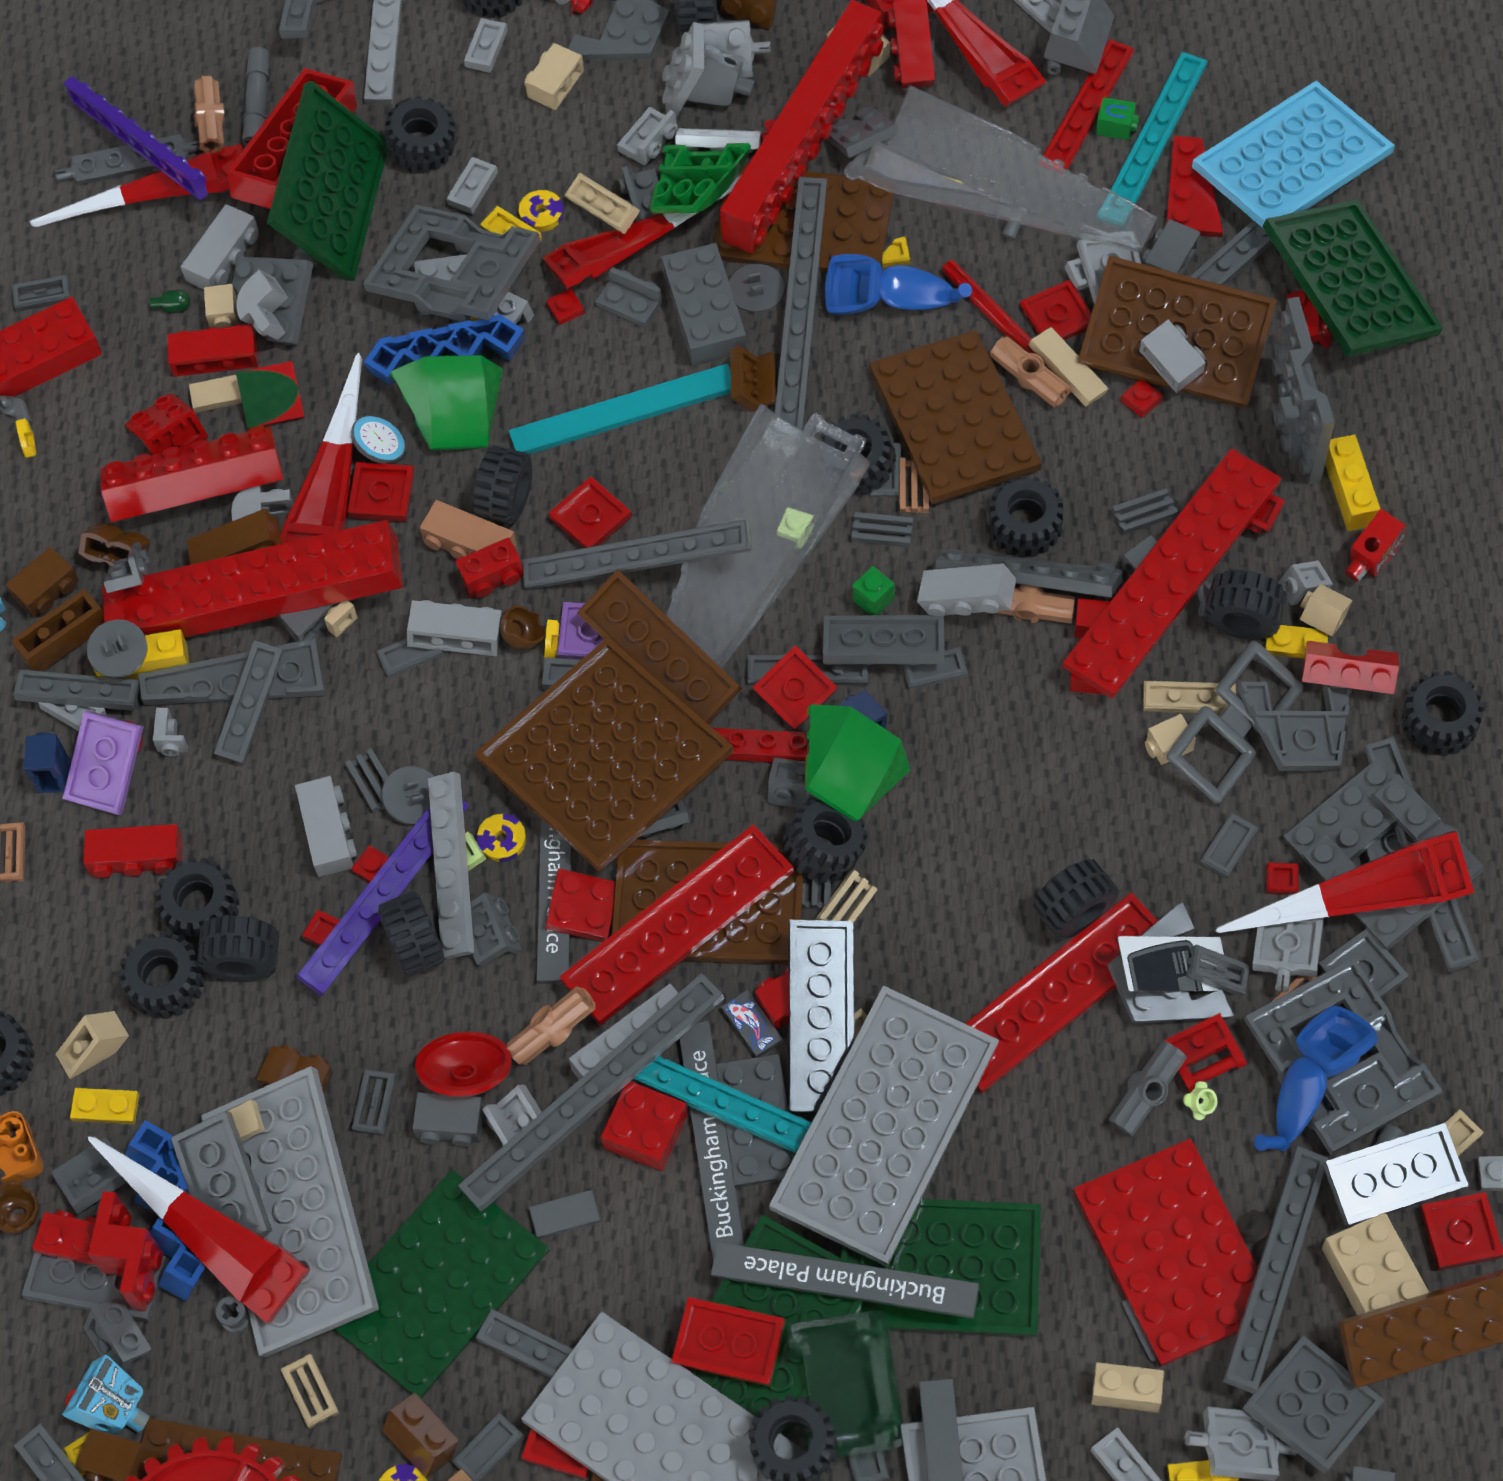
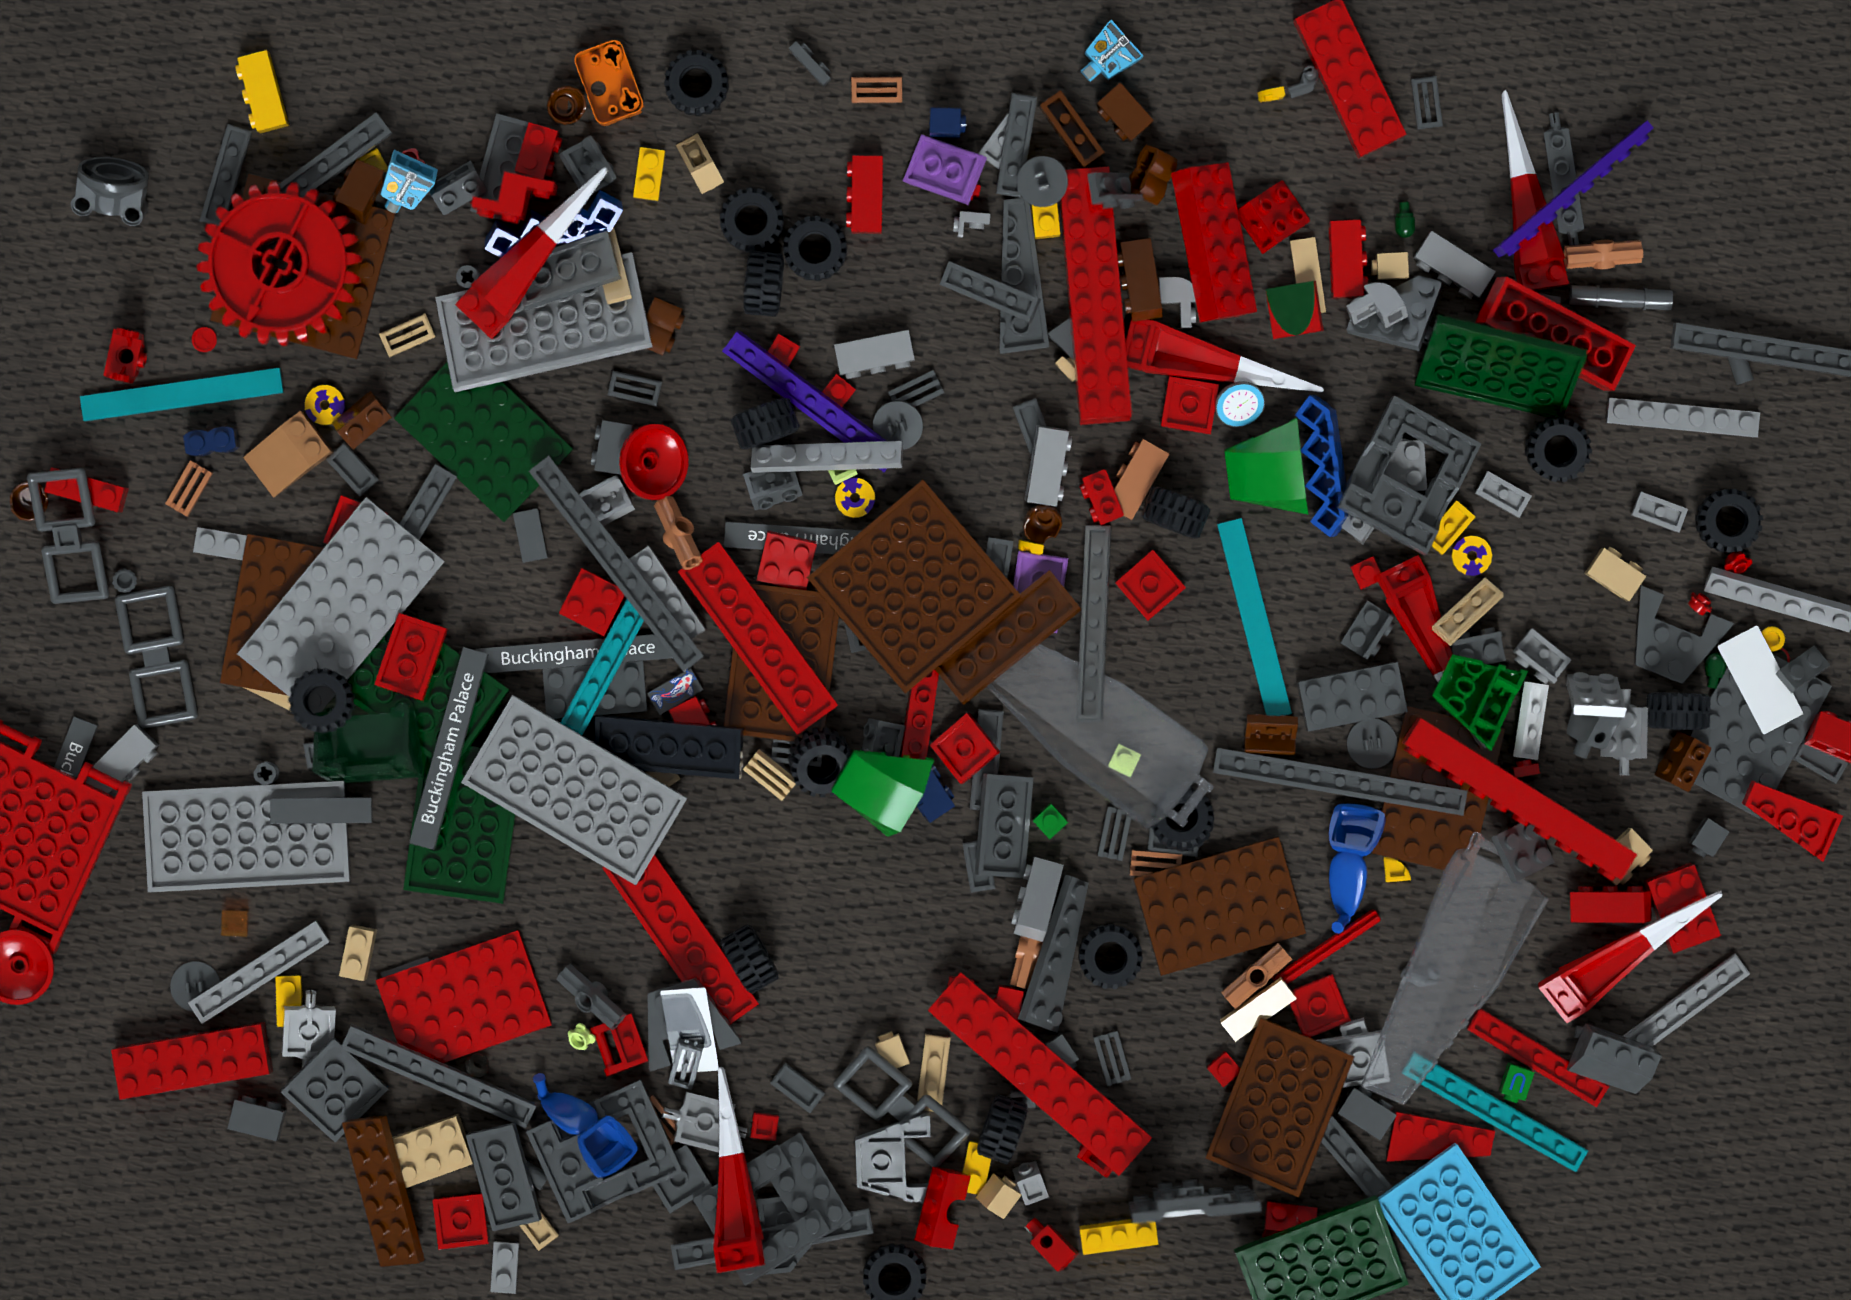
camera: 90 degrees right, 25 degrees up
(1173, 355) = (1249, 1099): light grey brick -> none

